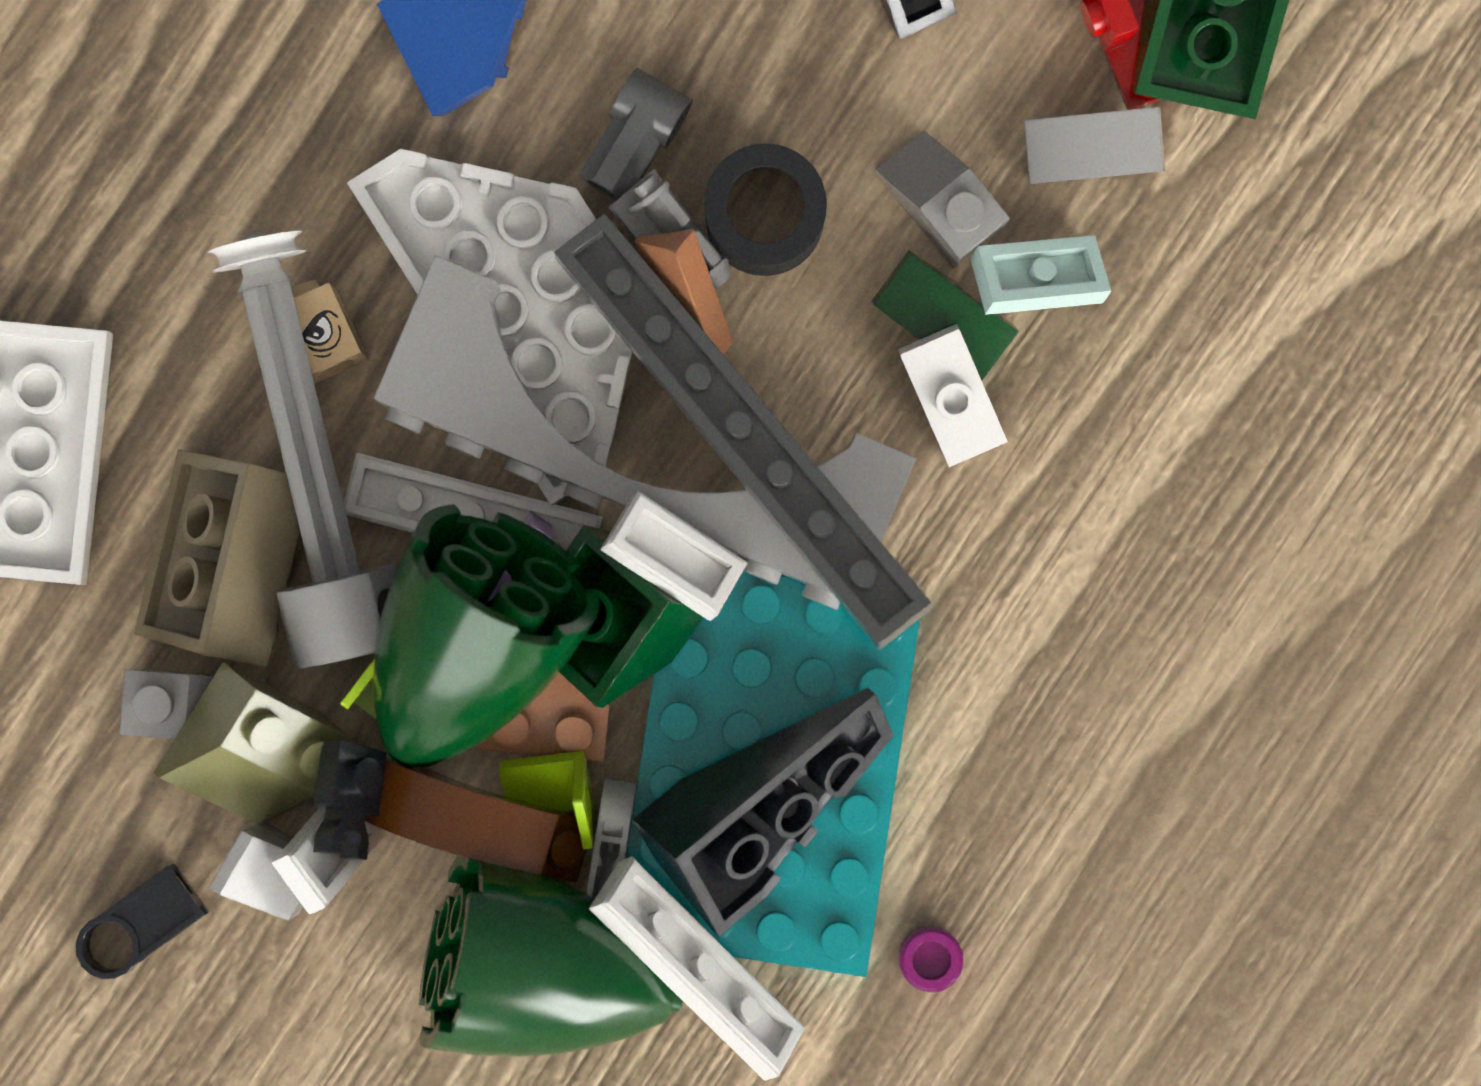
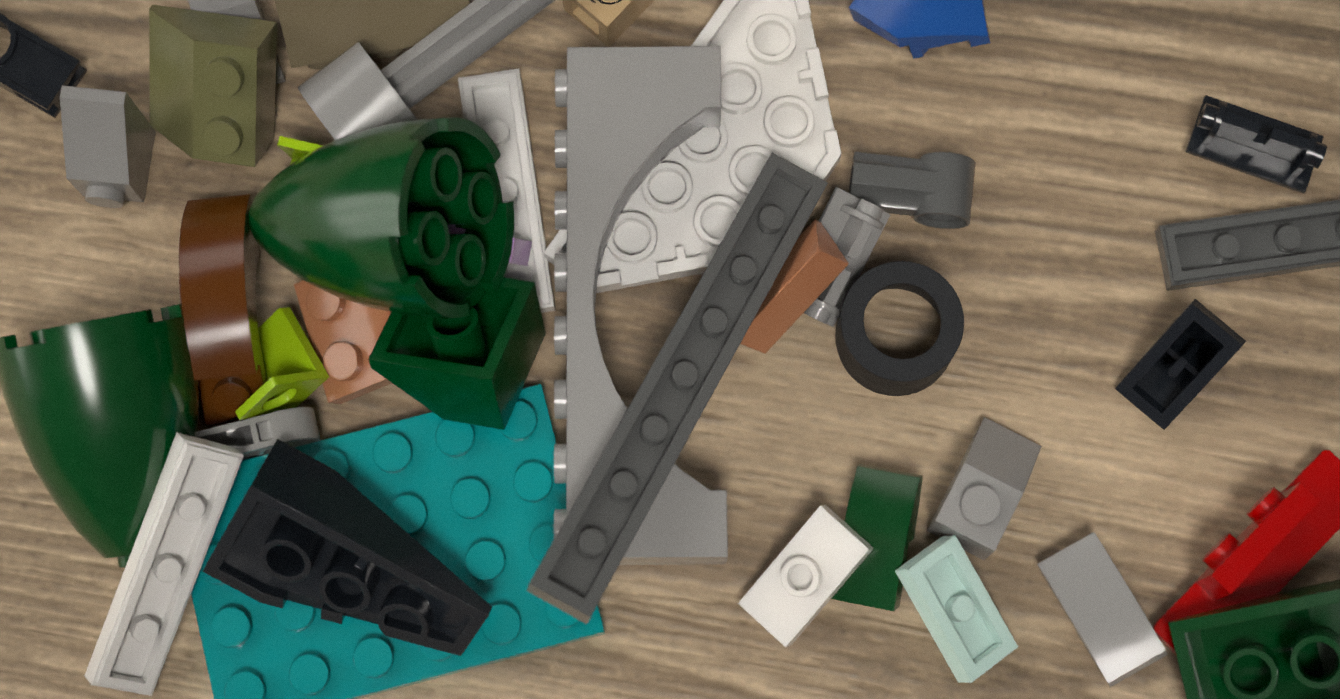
camera: 70 degrees right, 10 degrees down
(317, 876) = (141, 183): white tile -> none
(349, 790) = (206, 178): black plate -> none
(674, 556) = (536, 368): white tile -> none

